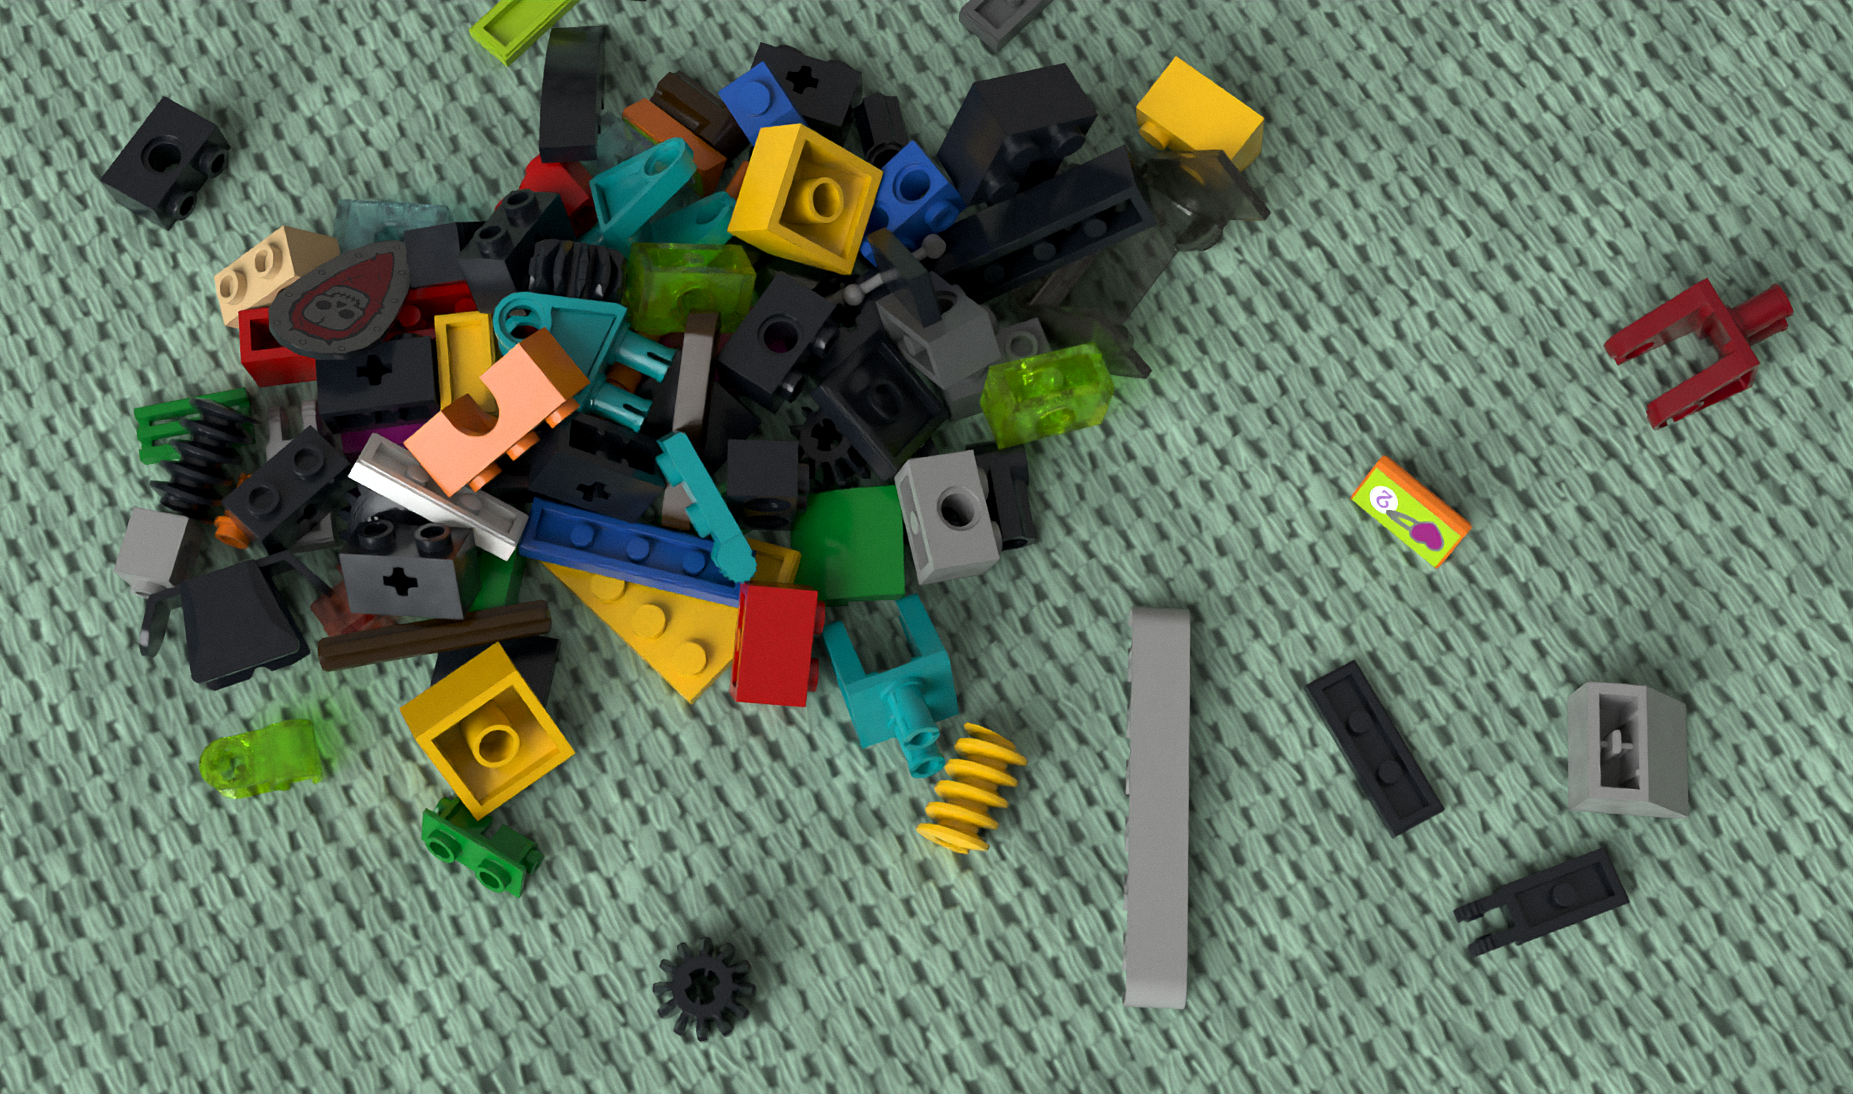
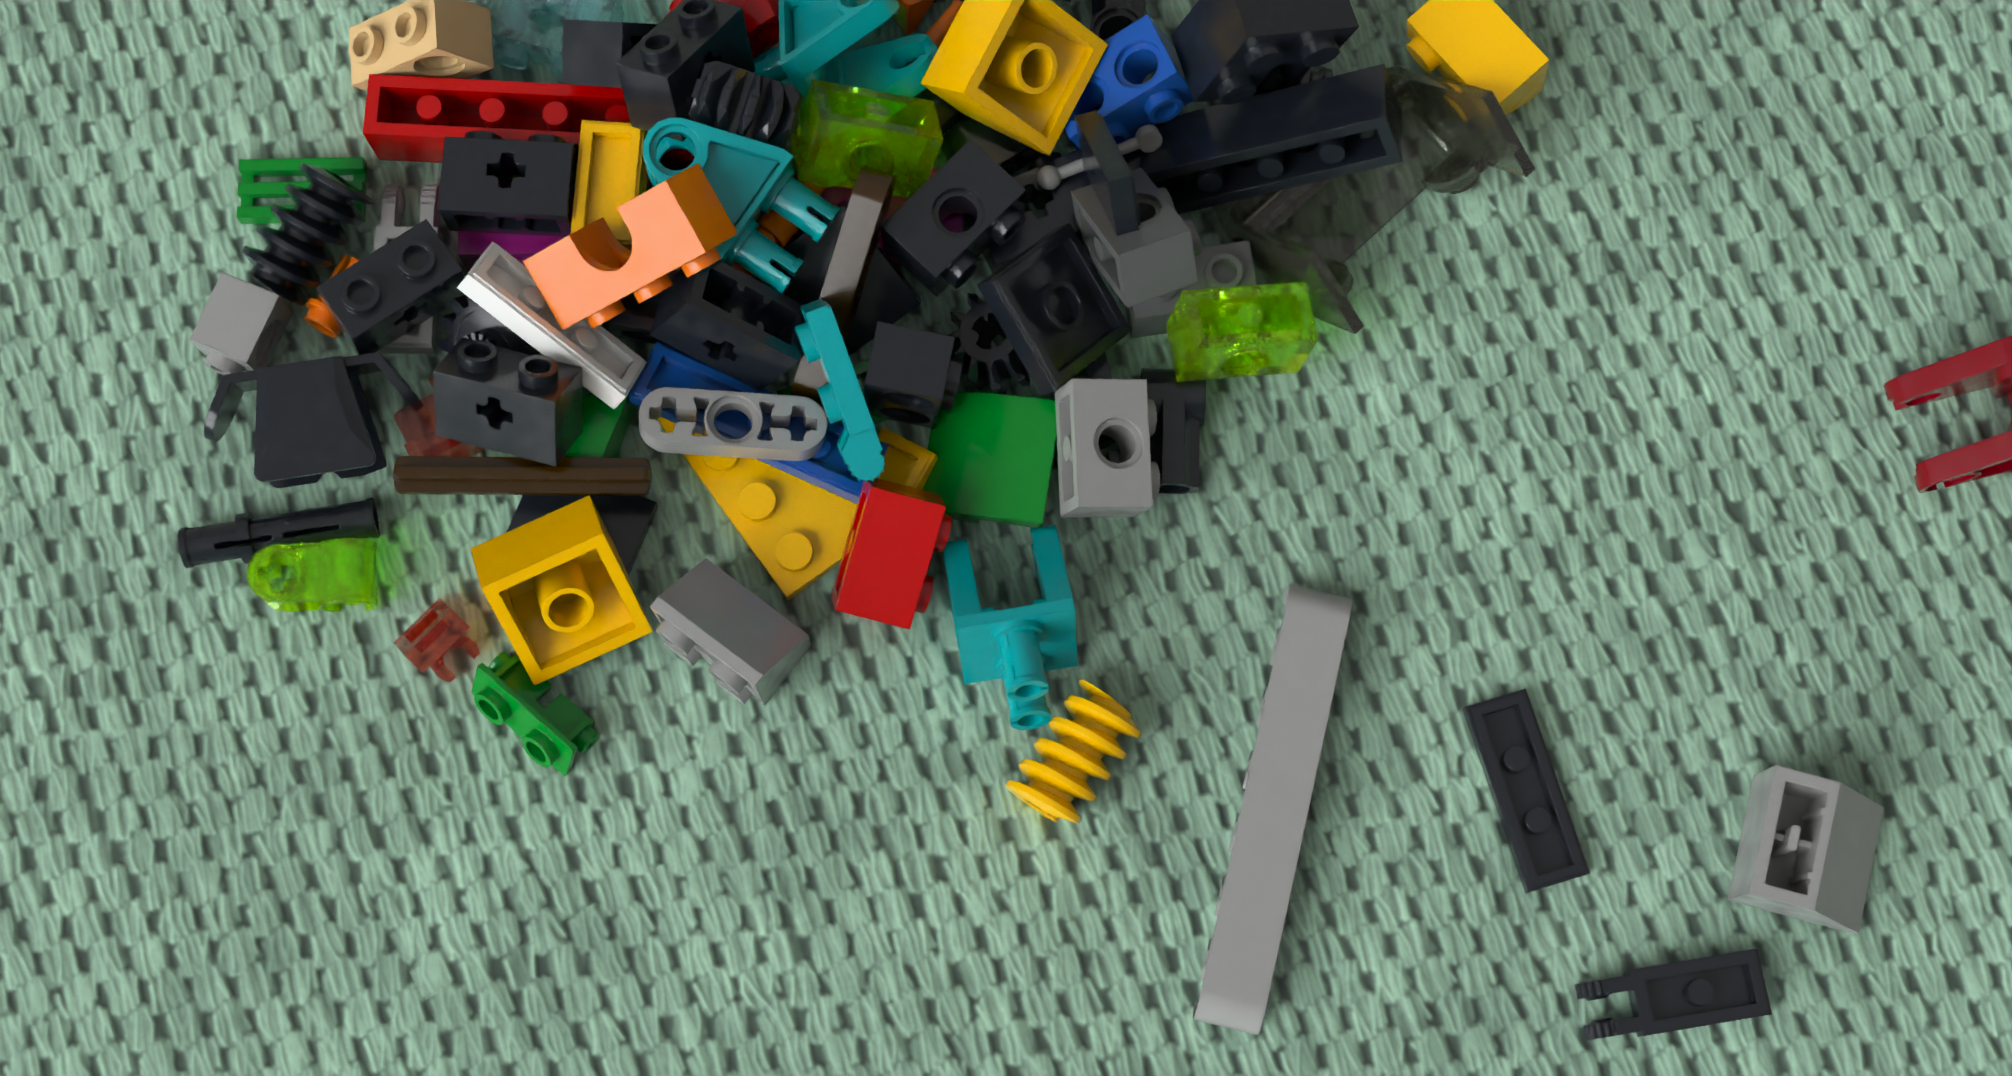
camera: 10 degrees right, 5 degrees up
(157, 750) = (246, 534): none -> black pin
(344, 303) = (485, 89): shield -> none
(377, 795) = (432, 636): none -> clear red tile
(571, 542) = (751, 404): none -> light grey beam
(645, 738) = (730, 629): none -> light grey slope
(684, 985) = (765, 923): black gear -> none
(1411, 511) = (1623, 535): slope -> none

